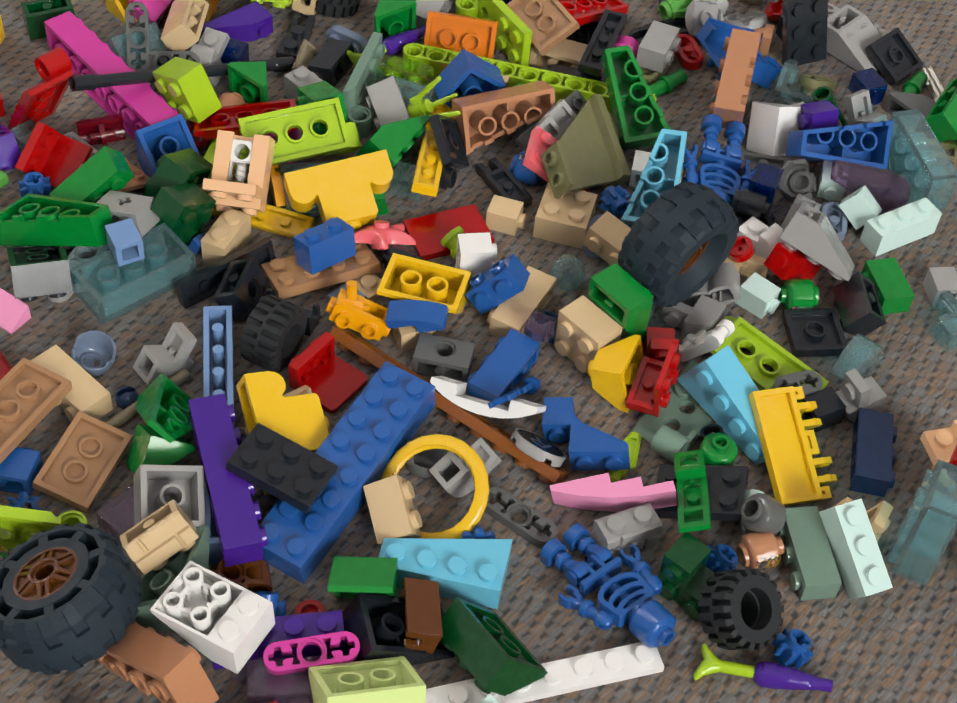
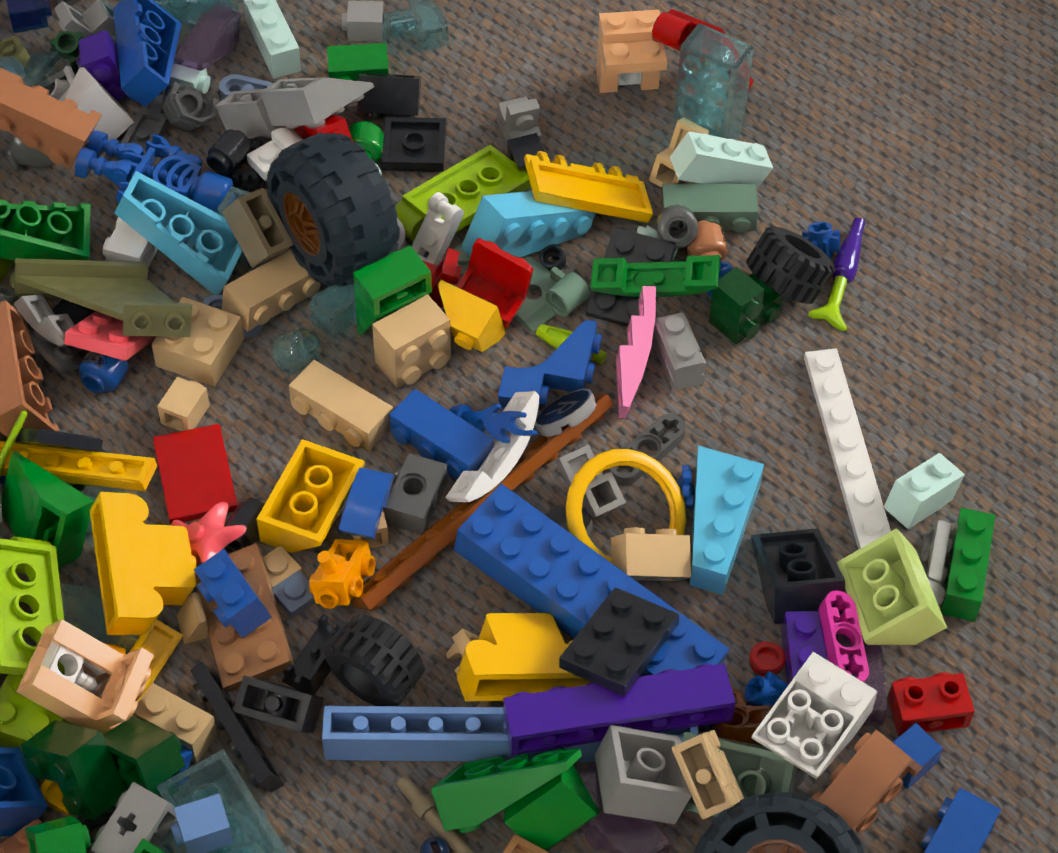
camera: 80 degrees left, 5 degrees up
(168, 357) = (383, 796): light grey brick -> none
(325, 373) = (430, 618): red bracket -> none
(363, 576) = (751, 587): green slope -> none
(422, 614) = (792, 532): reddish brown hinge -> none
(450, 240) = (233, 456): lime wheel -> none
(475, 252) = (272, 438): white brick -> none
(488, 649) = (828, 486): dark green slope -> none
(497, 284) = (325, 413): blue brick -> none
(503, 182) = (119, 403): black hinge -> none
(542, 326) = (391, 381): clear purple leg -> none
(614, 200) = (180, 285): blue gear -> none
(629, 591) = (773, 373): blue piece -> none
(719, 452) = (579, 254): green head -> none
(767, 181) = (200, 130): clear blue brick -> none
(796, 379) = (509, 168): dark grey beam -> none
(858, 354) = (468, 111): clear light blue brick -> none
(860, 207) = (240, 59): light aqua brick -> none
(873, 452) = (587, 130): dark blue brick -> none

